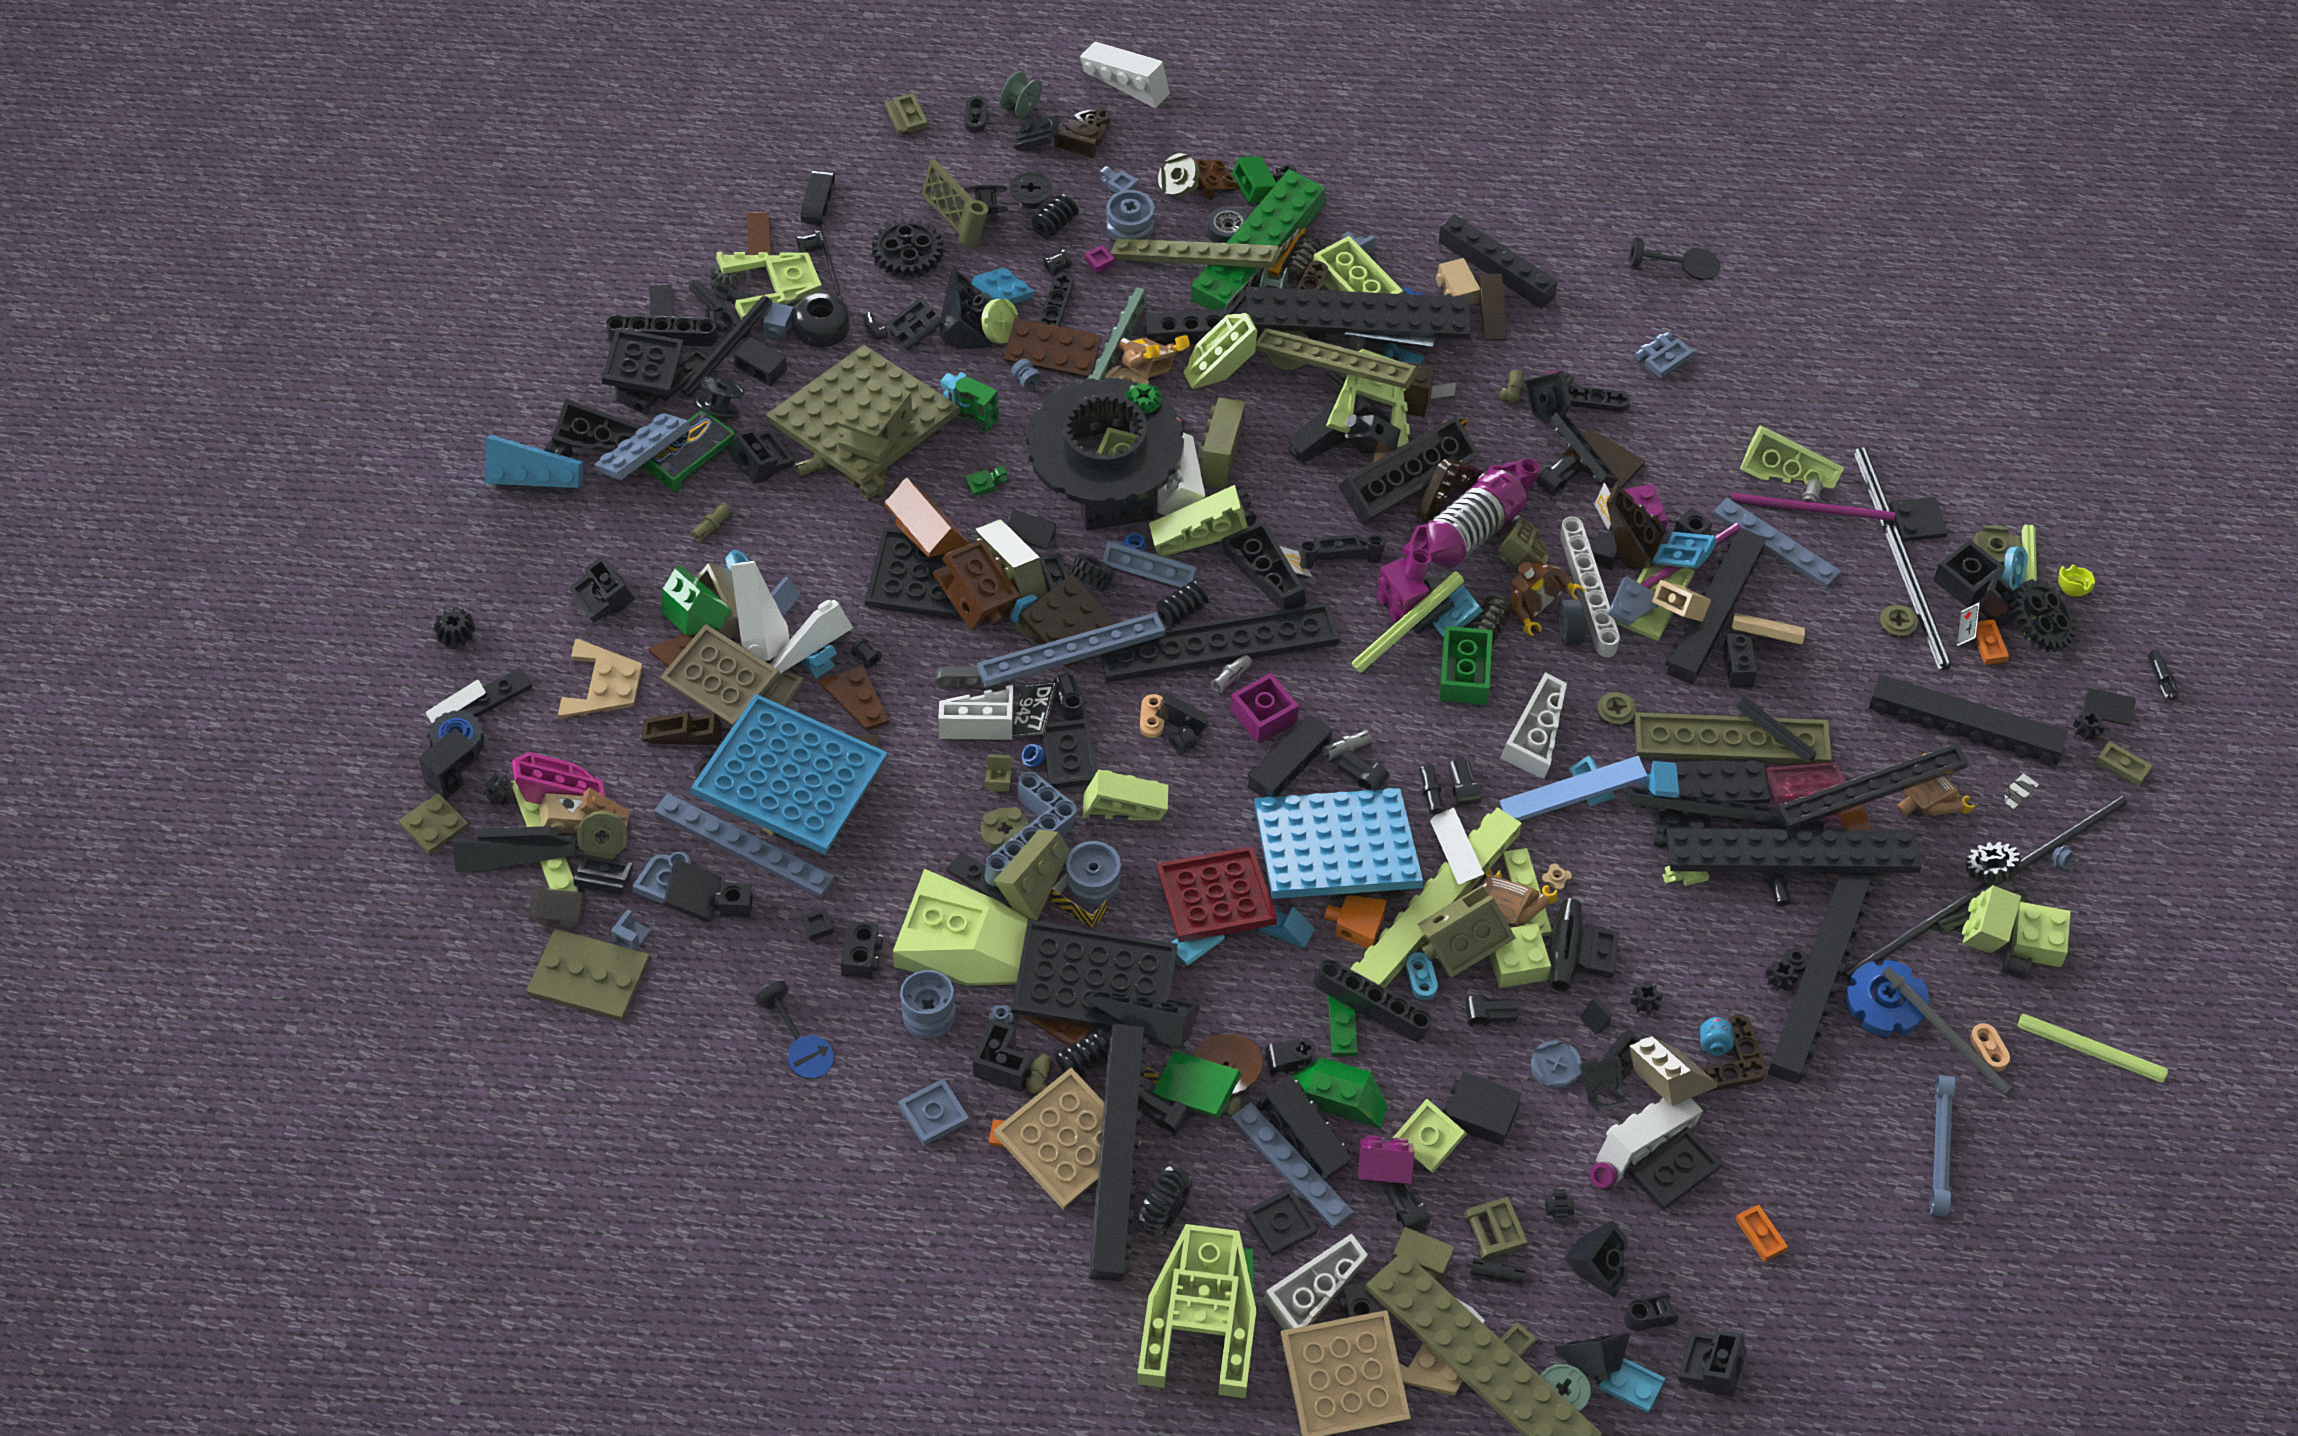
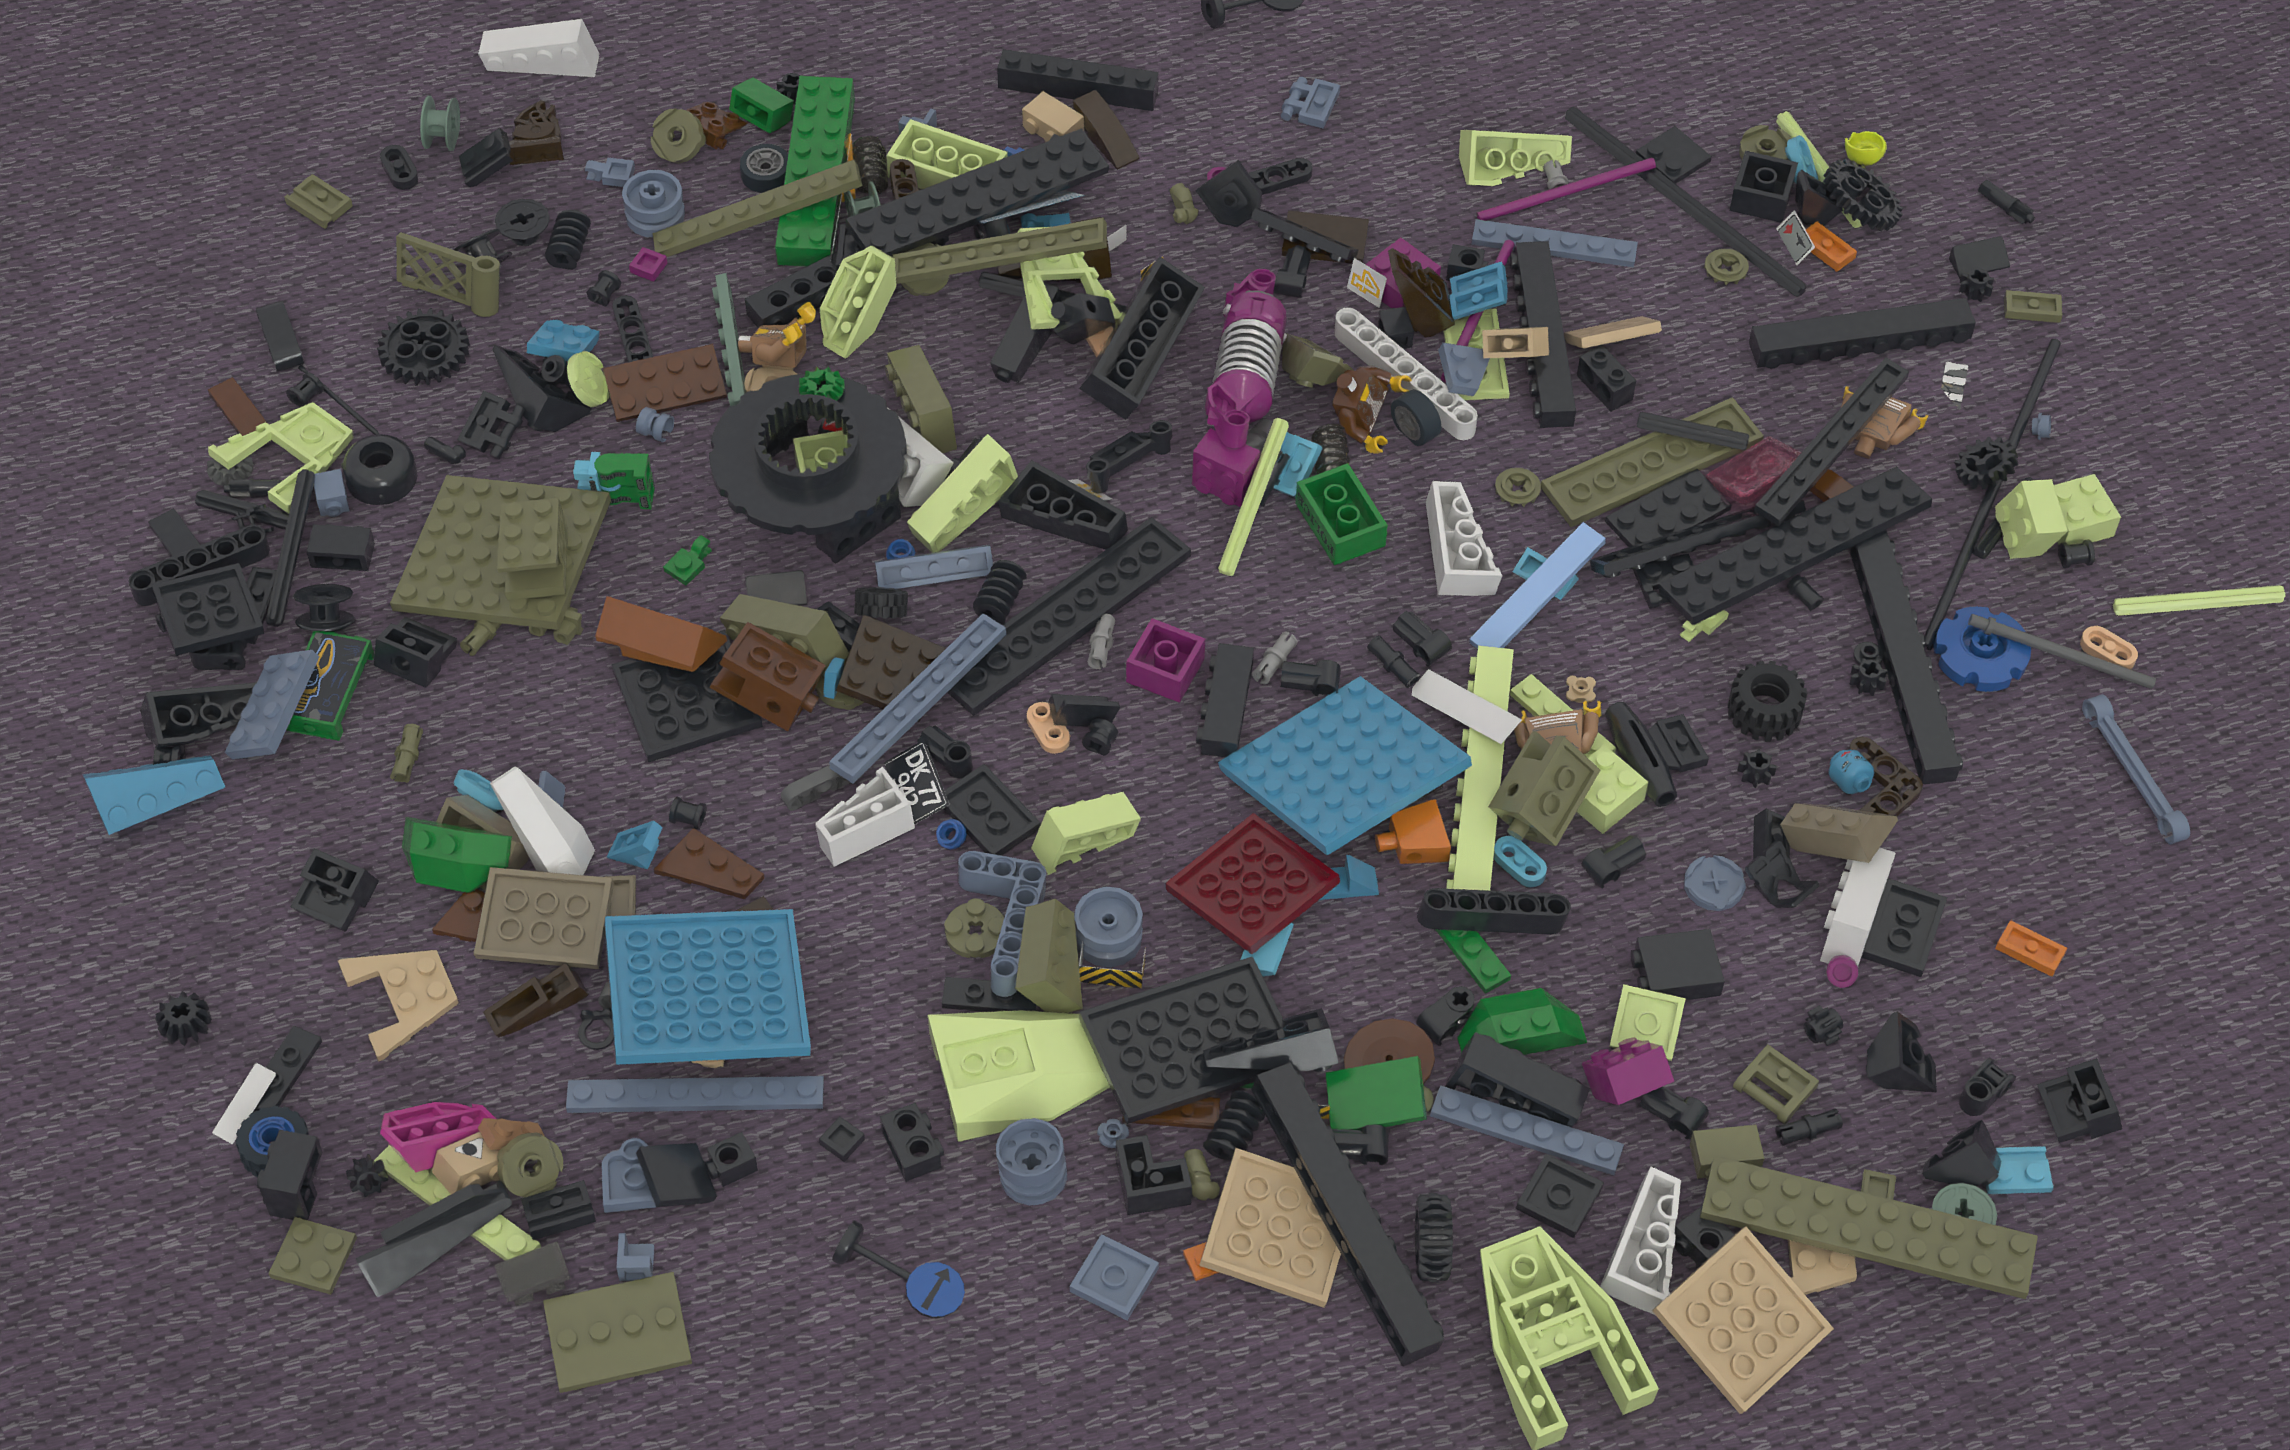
camera: 30 degrees left, 0 degrees up
(819, 630) = (621, 818): white wedge -> none
(998, 773) = (927, 872): olive bracket -> none
(1445, 476) = (1192, 320): dark brown beam -> none
(1596, 1016) = (1721, 811): black slope -> none
(1663, 779) = (1623, 535): dark azure slope -> none
(1683, 969) = (1763, 718): none -> black tyre

